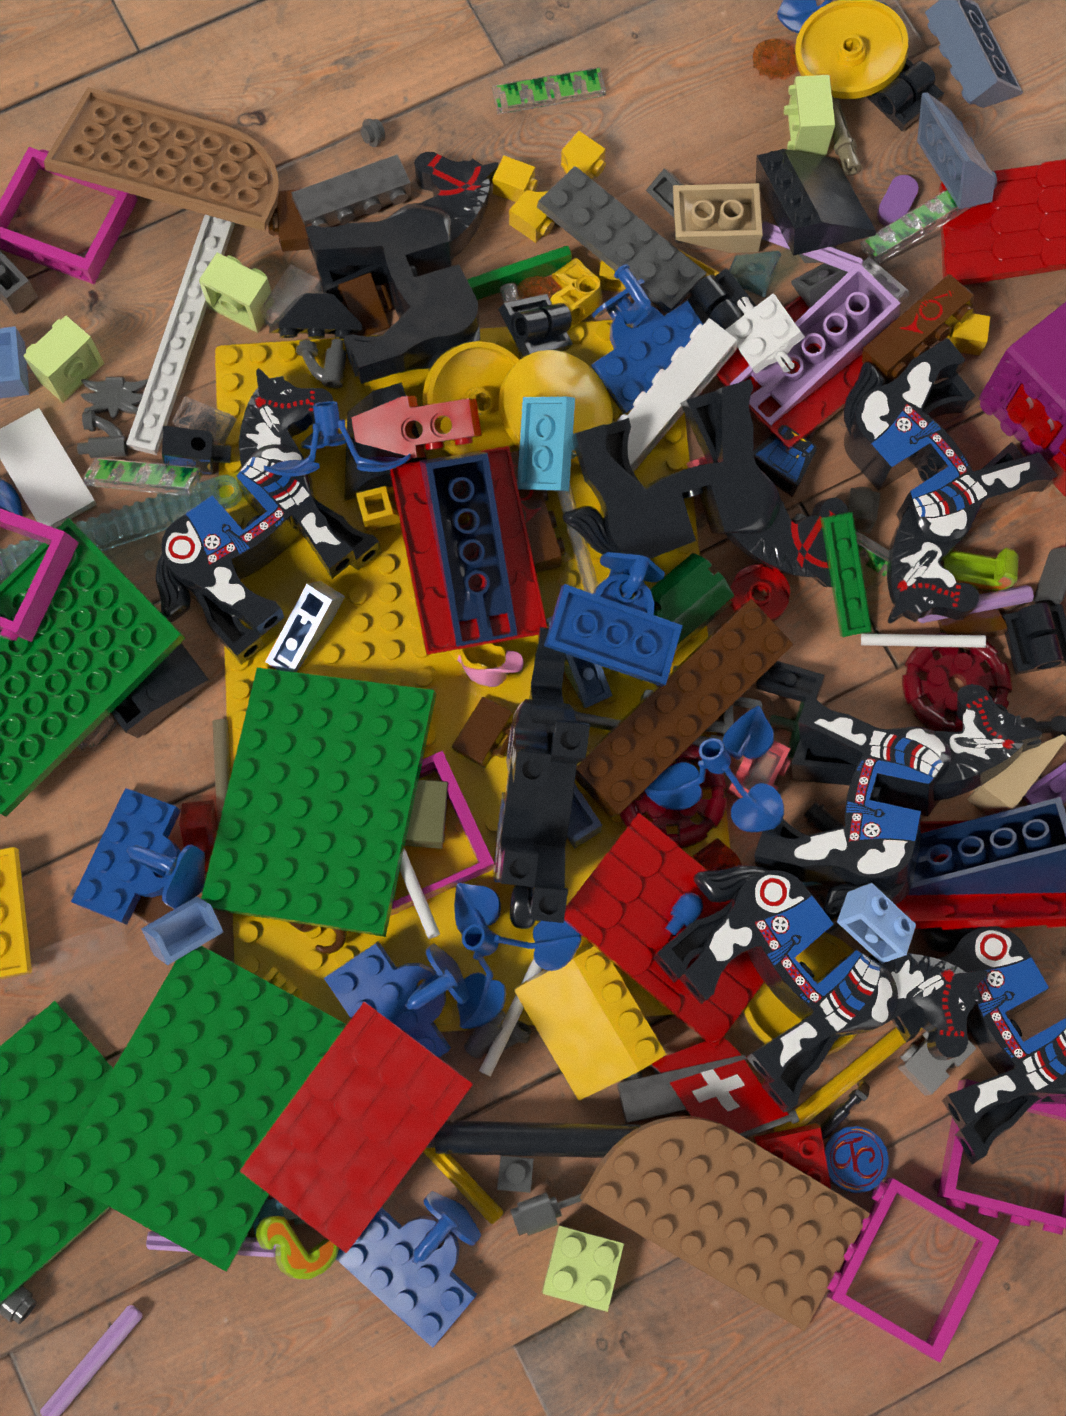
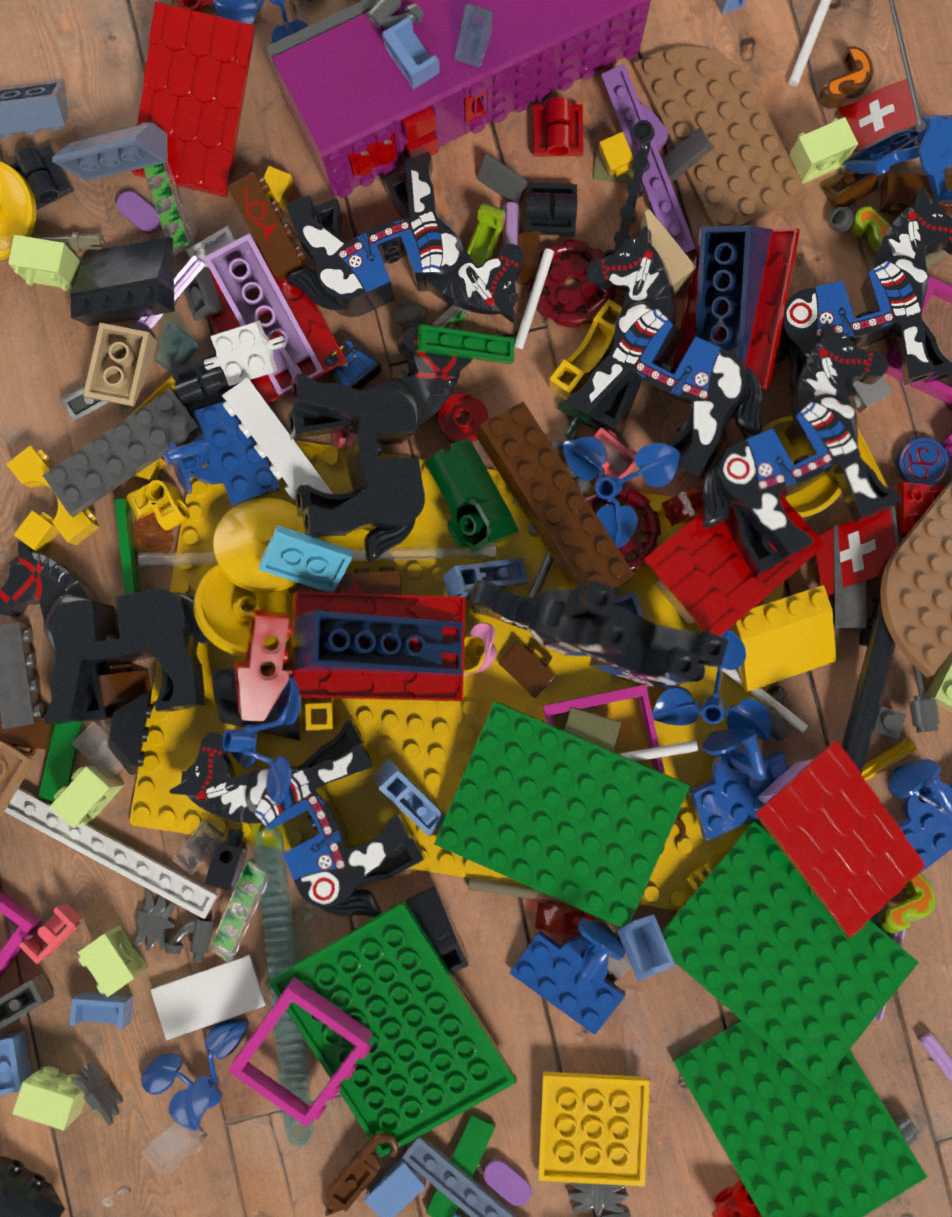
camera: 70 degrees left, 10 degrees up
(80, 295) = (52, 934): none -> coral window
(275, 260) = (60, 759): none -> green tile
(334, 366) = (173, 723): dark grey plant -> none
(537, 324) = (185, 542): black plate -> none
(616, 629) = (482, 538): blue plate -> none
(685, 912) = (728, 542): blue cylinder -> none
(791, 682) = (546, 407): black plate -> none
(821, 818) = (659, 417): black pin -> none
(843, 1110) = (883, 447): black piece -> none
(848, 698) = (576, 370): none -> yellow arch
(876, 923) = (779, 395): light blue brick -> none

